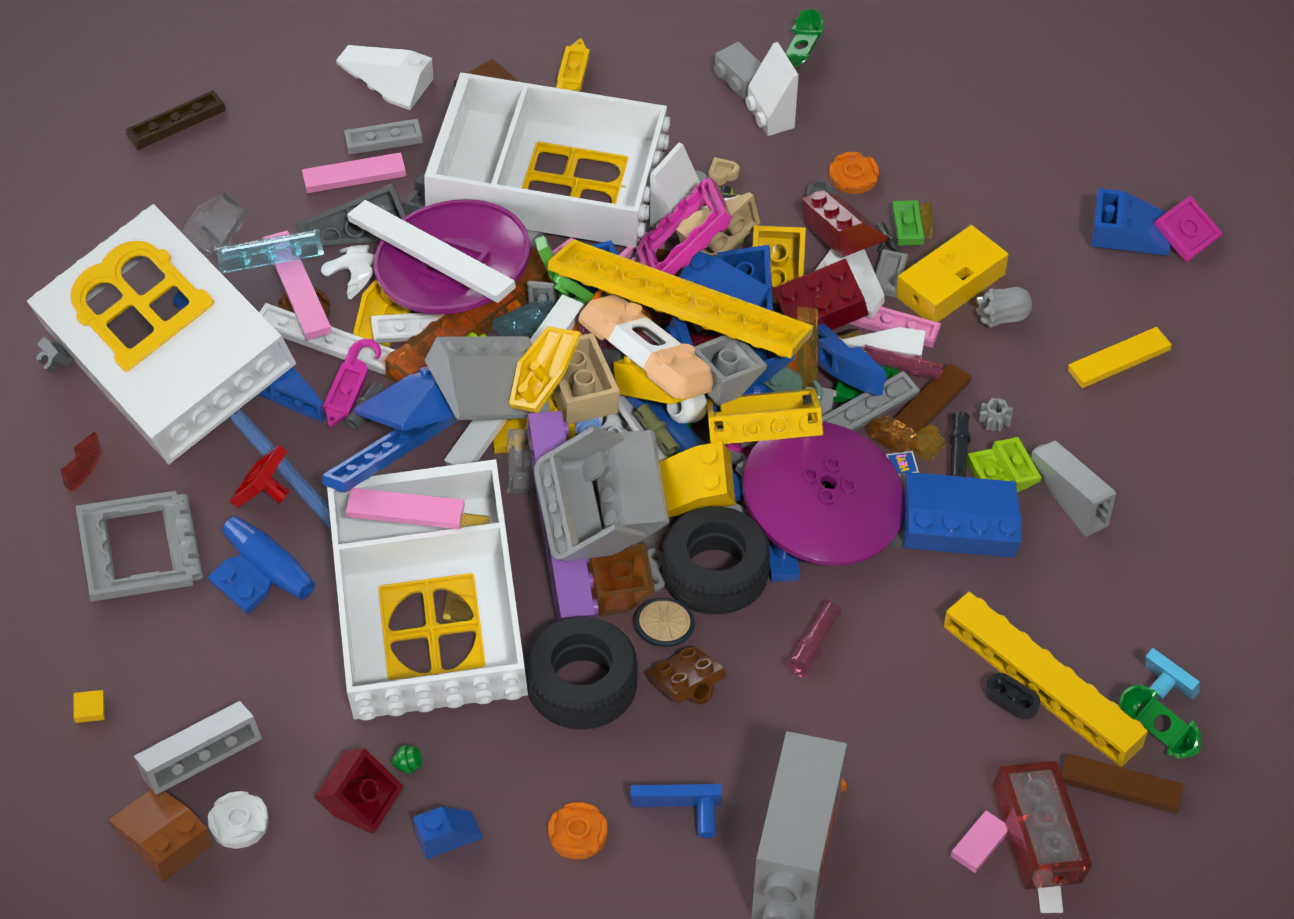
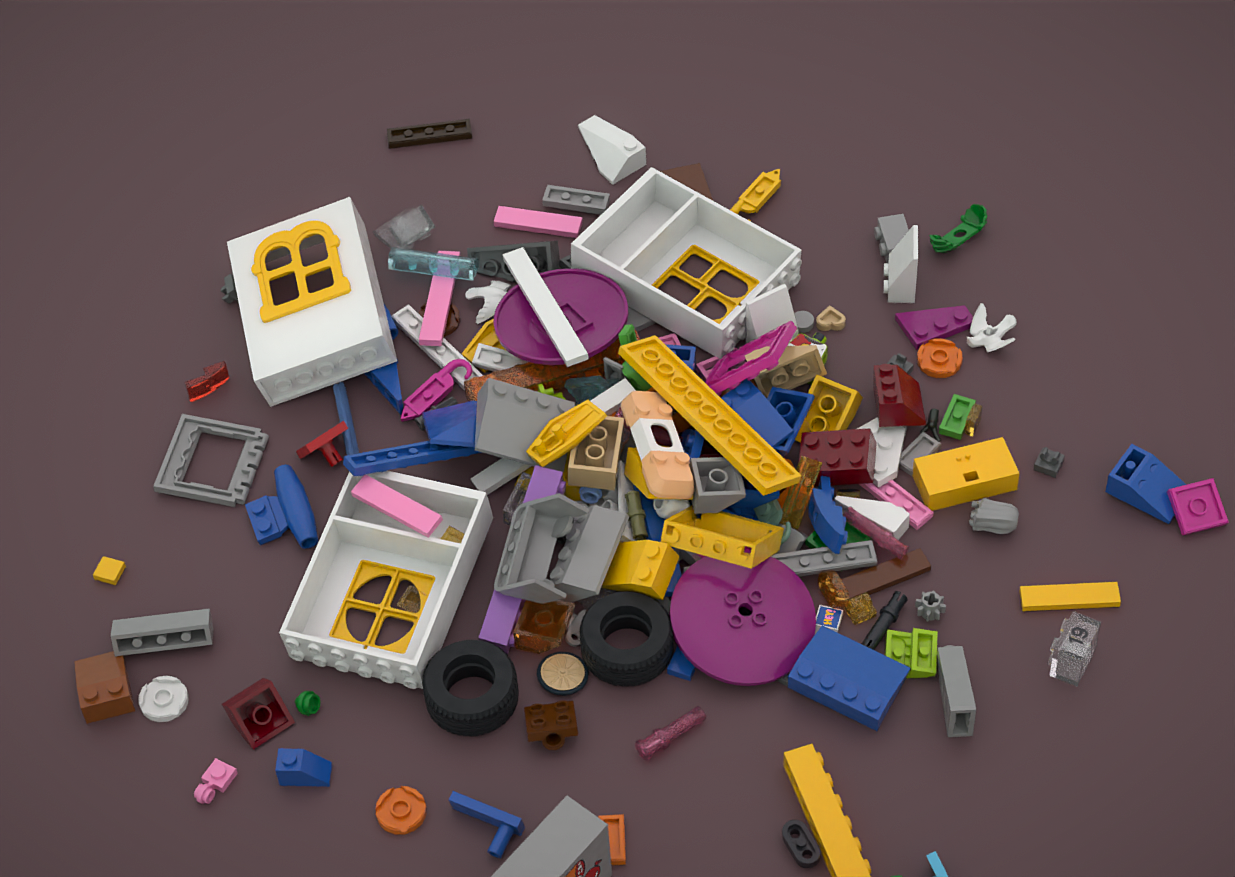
camera: 30 degrees right, 0 degrees up
(352, 878) = (218, 777): none -> bright pink plate
(827, 141) = (933, 323): none -> magenta wing
(892, 134) = (987, 335): none -> white animal
(1021, 236) = (1049, 462): none -> dark grey tile
(1161, 402) = (1074, 648): none -> clear brick

